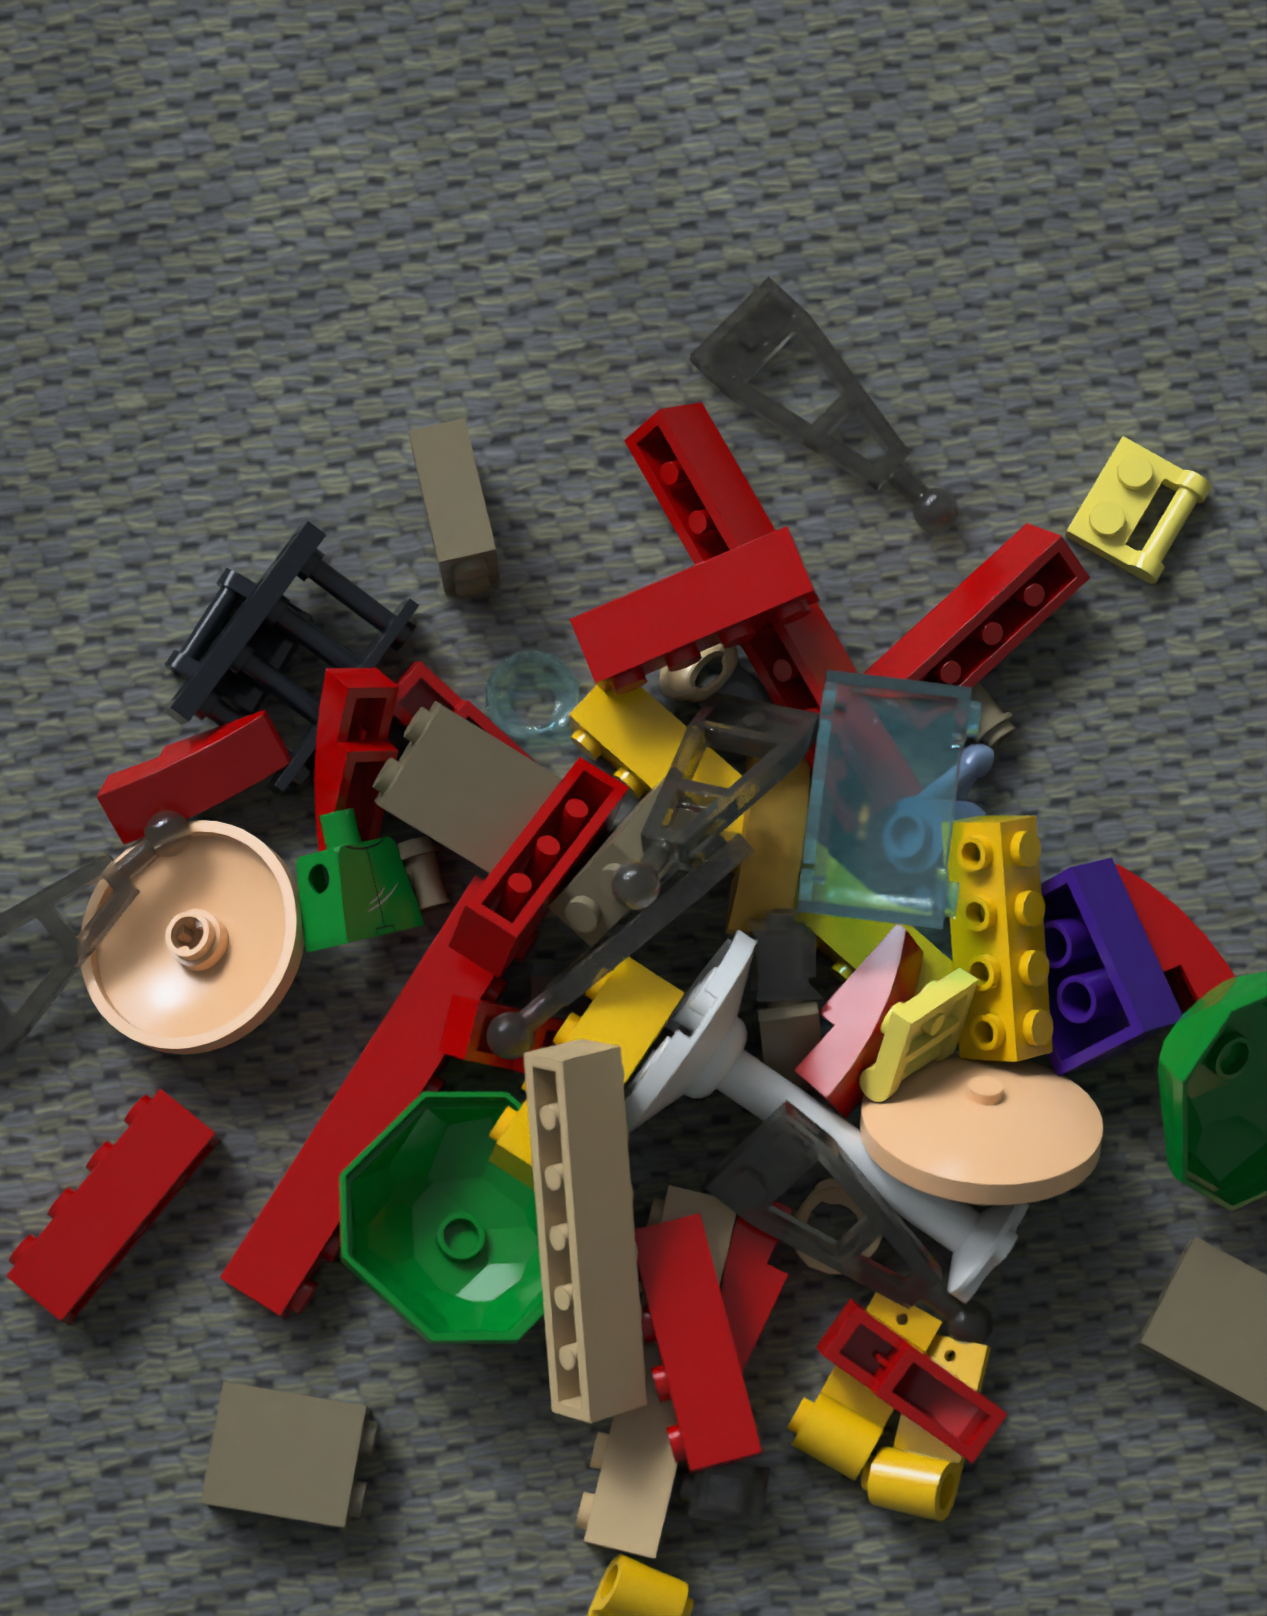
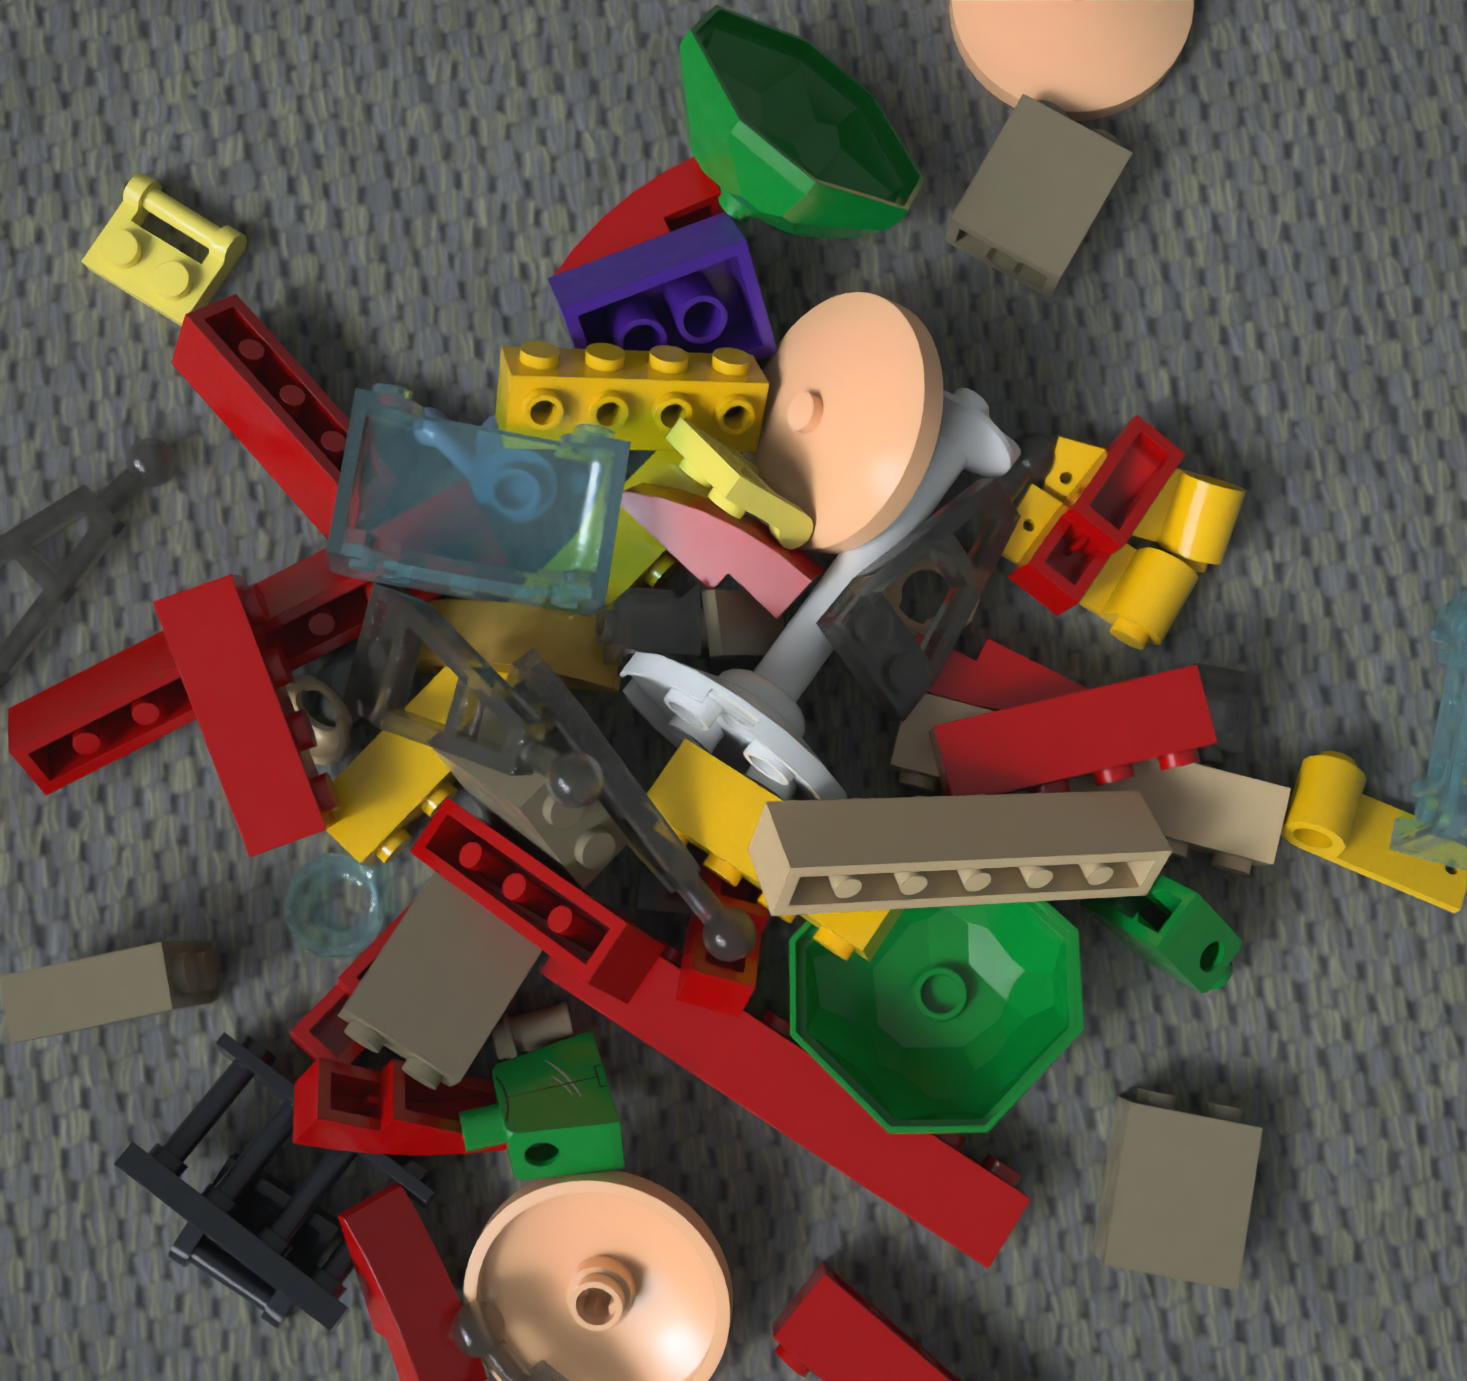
camera: 85 degrees left, 5 degrees up
(515, 1449) = (1191, 940): none -> green torso

